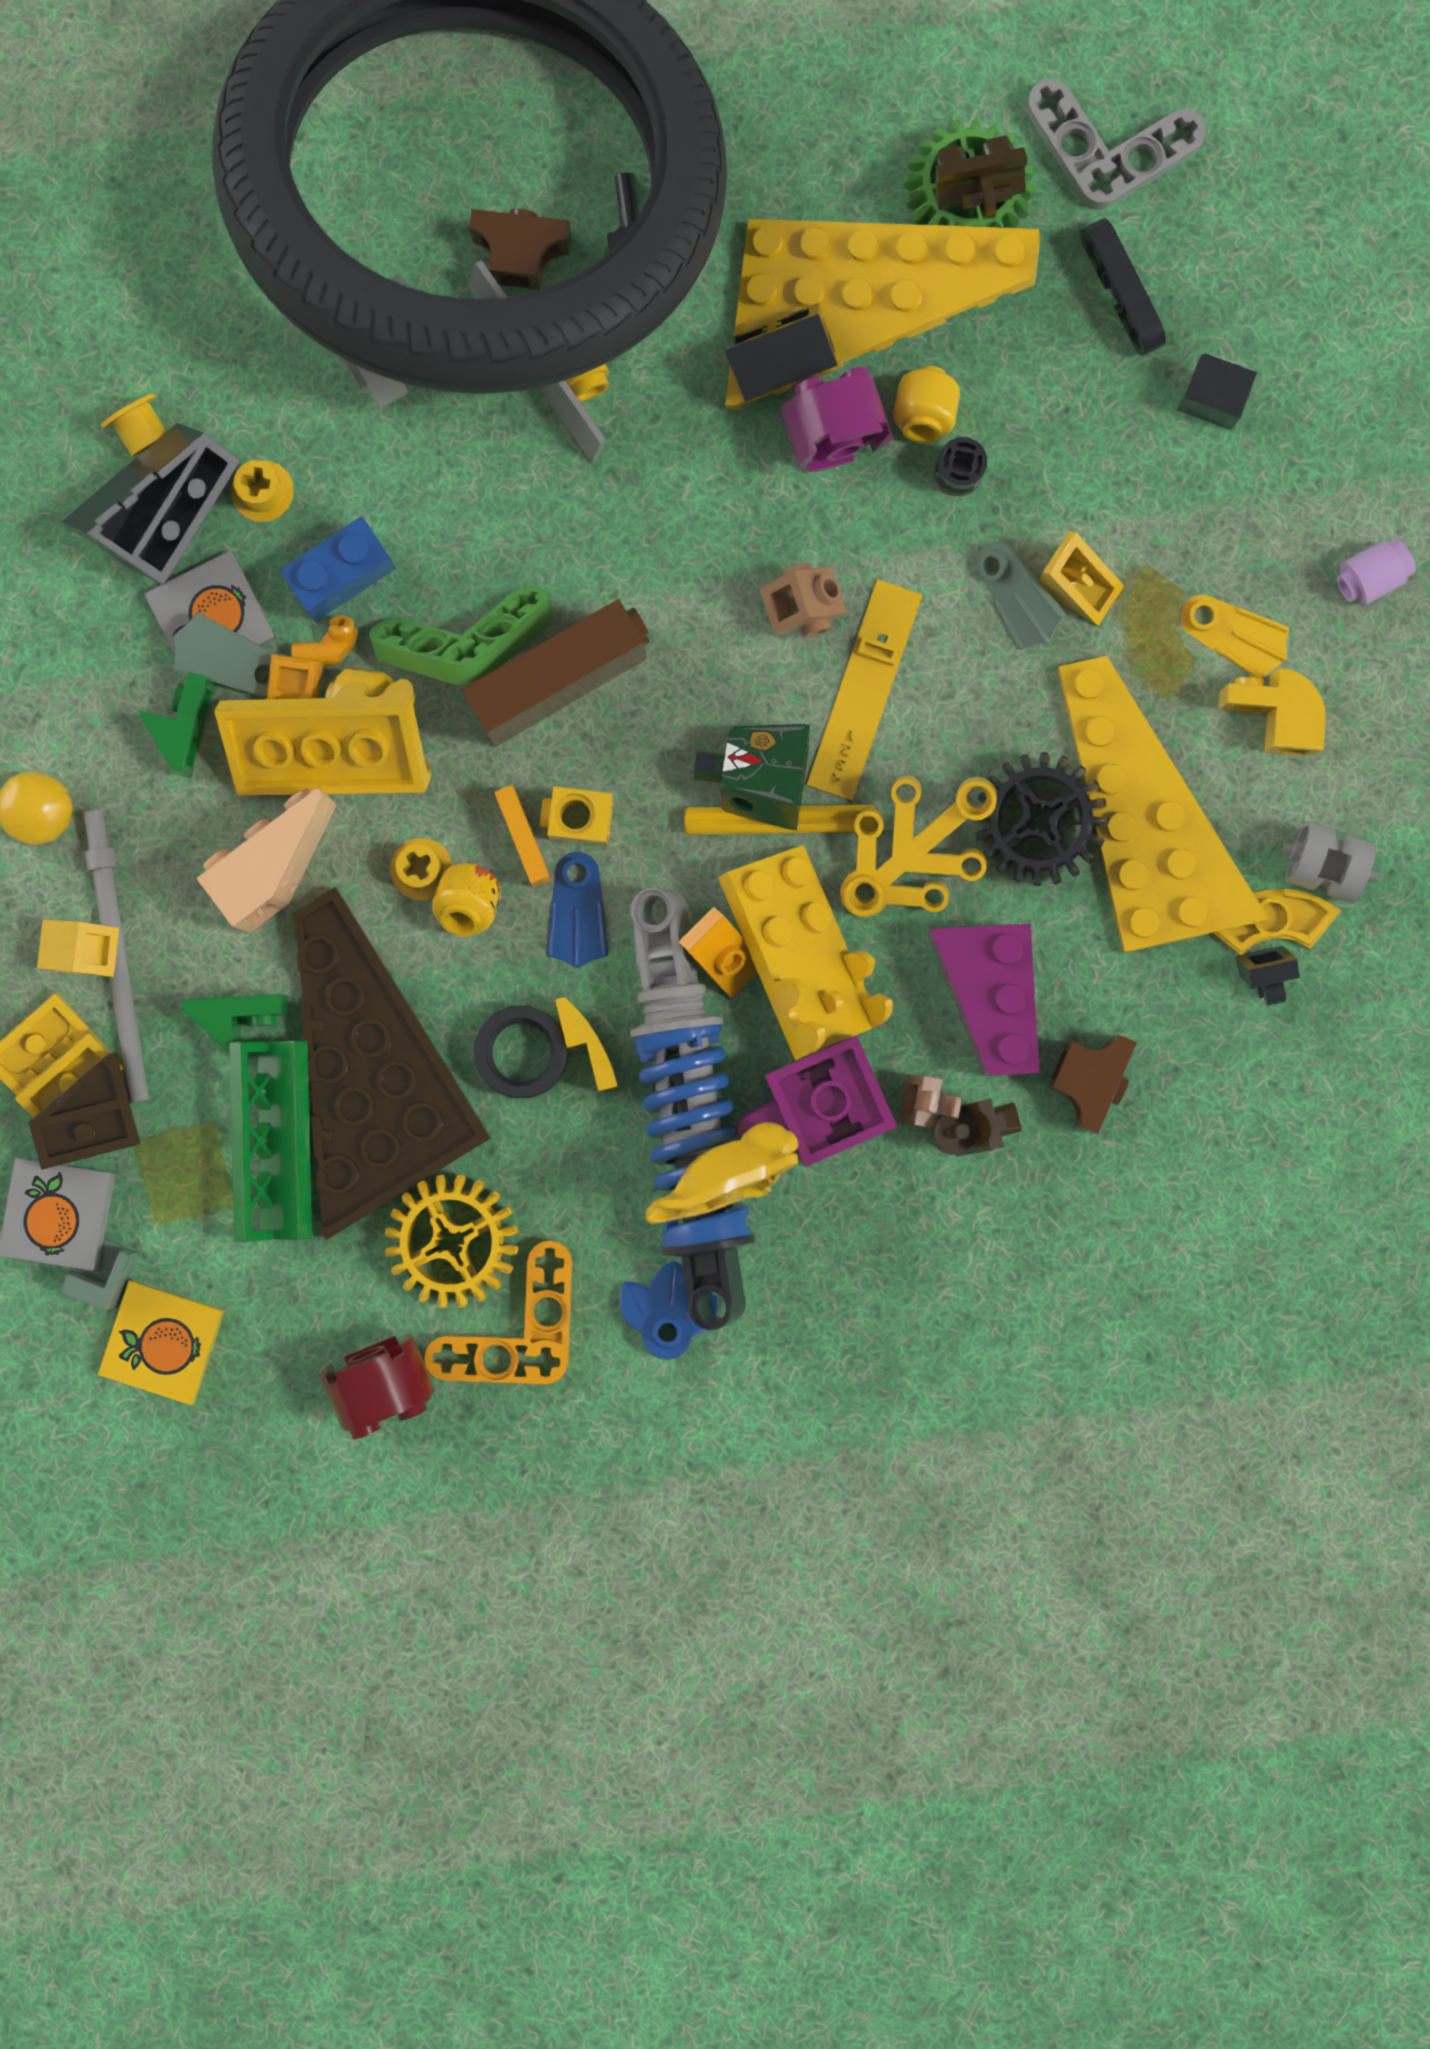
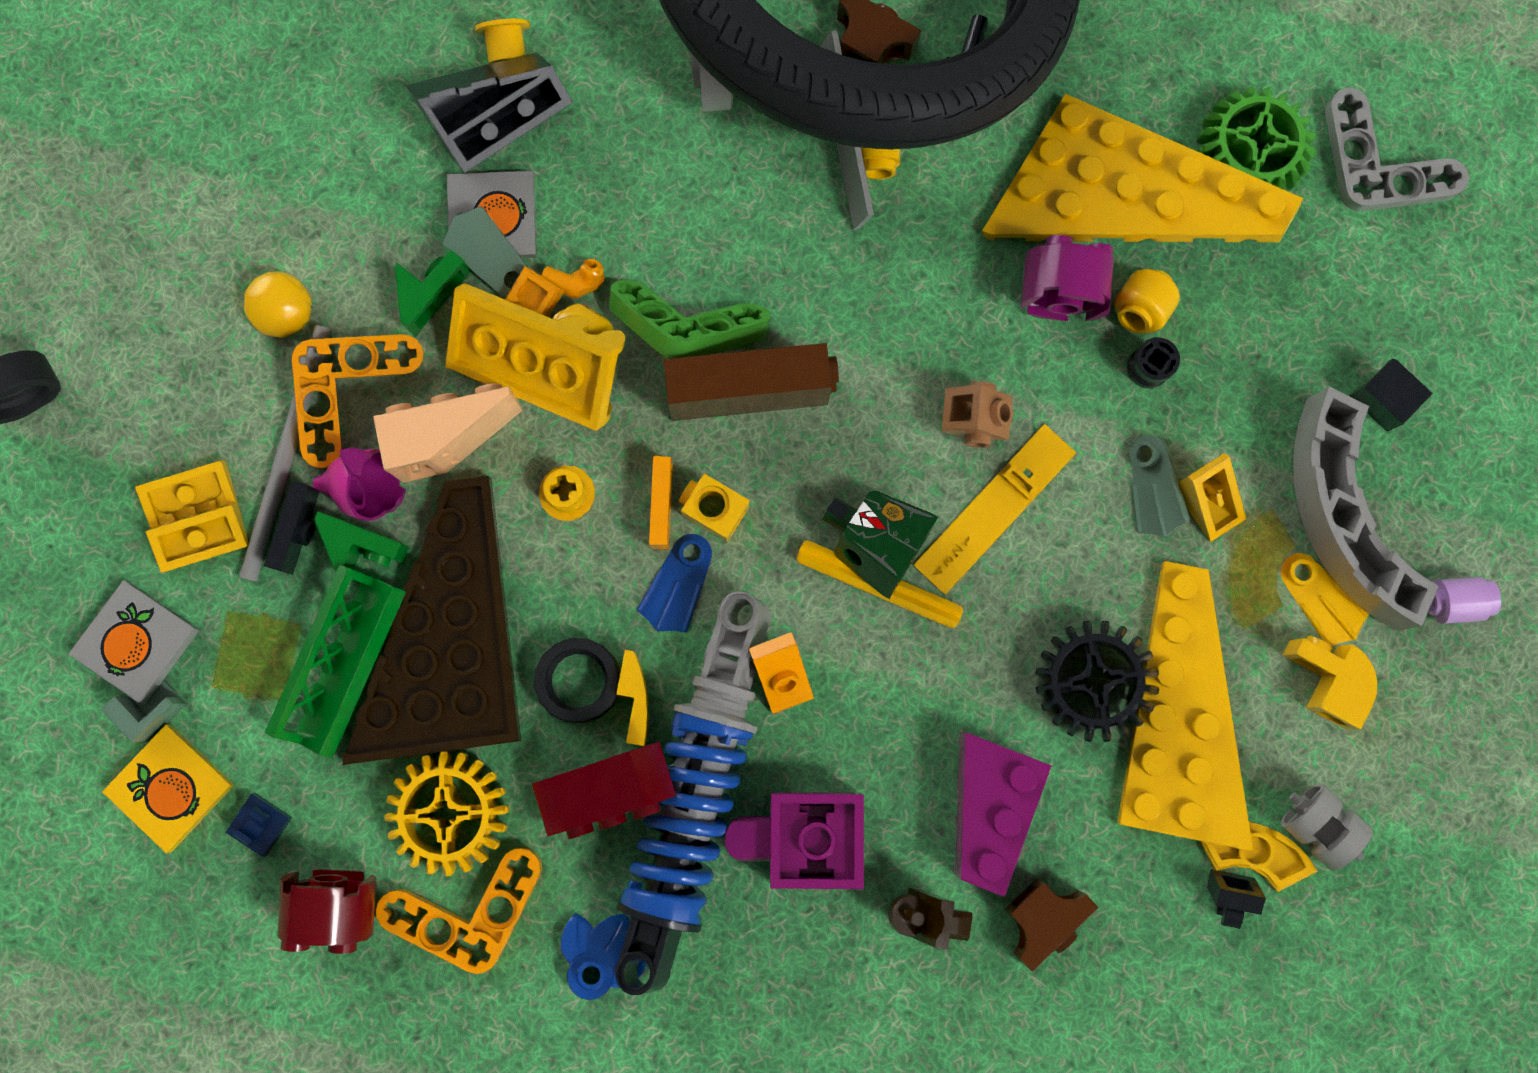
camera: 20 degrees right, 5 degrees down
(78, 948) = (255, 431): yellow brick -> none
(86, 1118) = (195, 574): dark brown wing -> none
(124, 866) = (324, 382): none -> light orange beam
(163, 1028) = (293, 528): none -> black plate
(210, 953) = (361, 484): none -> magenta hat
(261, 490) = (579, 135): yellow piece -> none
(269, 1337) = (258, 824): none -> dark blue tile
(338, 569) = (610, 222): blue brick -> none
(466, 899) = (590, 534): yellow head -> none
(599, 1147) = (605, 792): none -> dark red brick
(729, 1174) = (702, 866): yellow animal -> none
(781, 352) = (1047, 206): black hinge -> none
(802, 953) = (848, 704): yellow hinge -> none
(912, 853) = (976, 661): yellow plant -> none
(926, 1101) = (896, 876): medium nougat plate -> none
(980, 179) = (1271, 138): dark brown hips -> none
(1120, 276) = (1348, 266): black beam -> none
(1215, 544) = (1339, 517): none -> light grey brick

